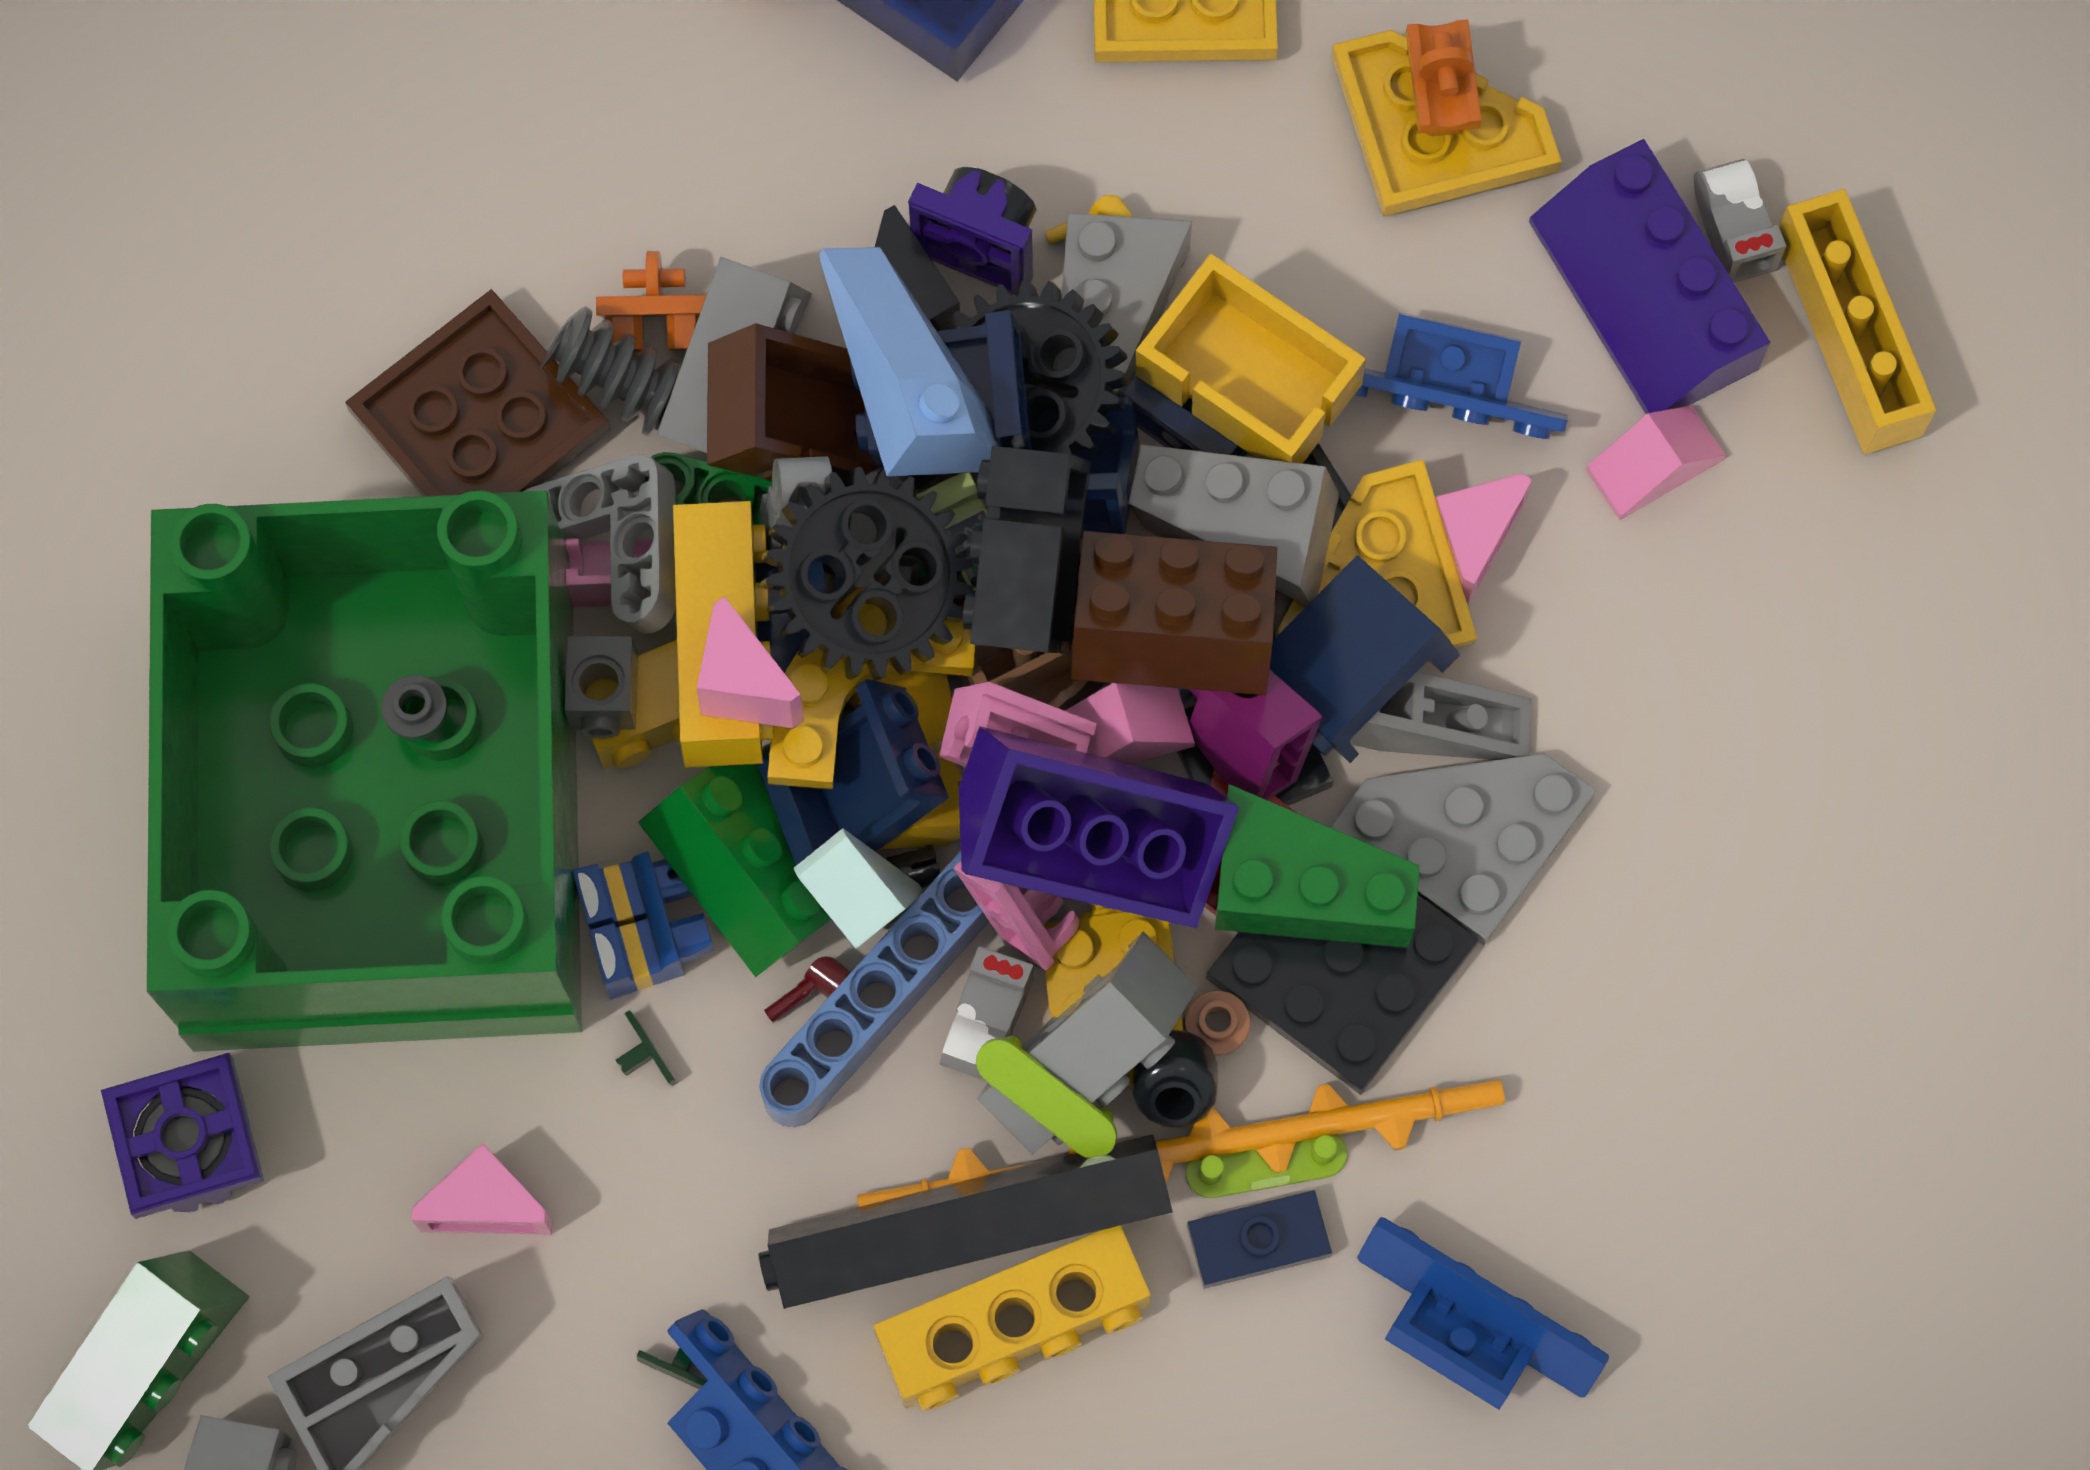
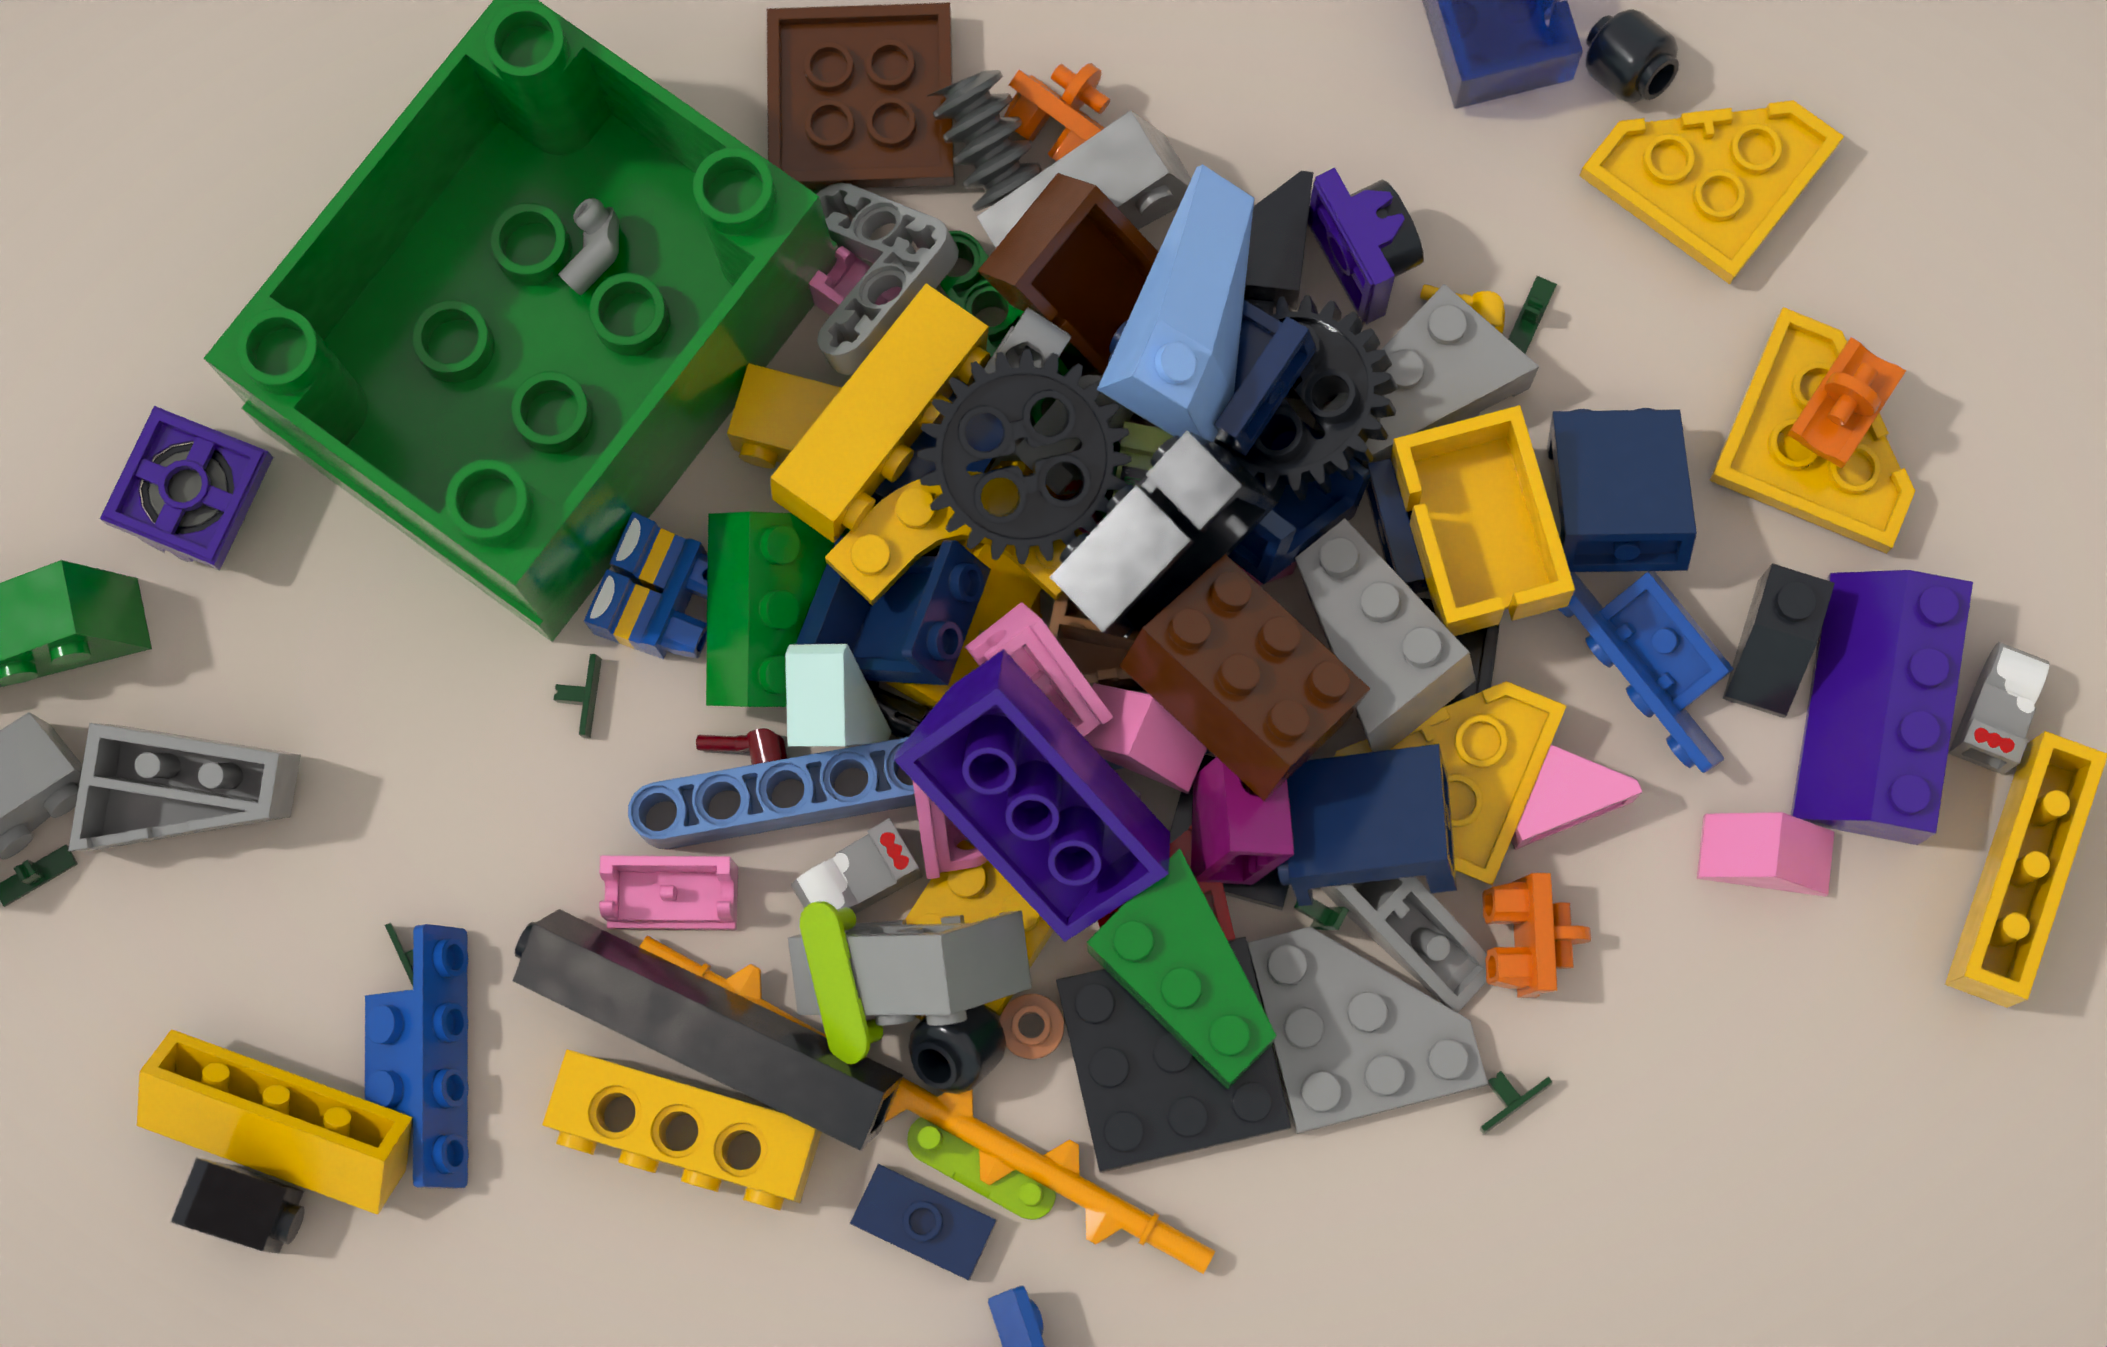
camera: 45 degrees right, 5 degrees up
(369, 678) = (599, 245): none -> light grey arm
(416, 725) = (617, 306): dark grey plate -> none
(481, 1199) = (371, 710): bright pink slope -> none
(595, 659) = (771, 357): dark grey brick -> none
(741, 677) = (850, 459): bright pink slope -> none
(847, 1145) = (669, 892): none -> bright pink hinge
(1143, 188) = (1531, 313): none -> dark green piece
(1332, 263) = (1622, 490): none -> dark blue panel
(1371, 761) = (1323, 917): none -> dark green piece
(1534, 292) = (1778, 639): none -> black slope
(1542, 650) = (1540, 935): none -> orange hips
(1620, 789) = (1510, 1098): none -> dark green piece

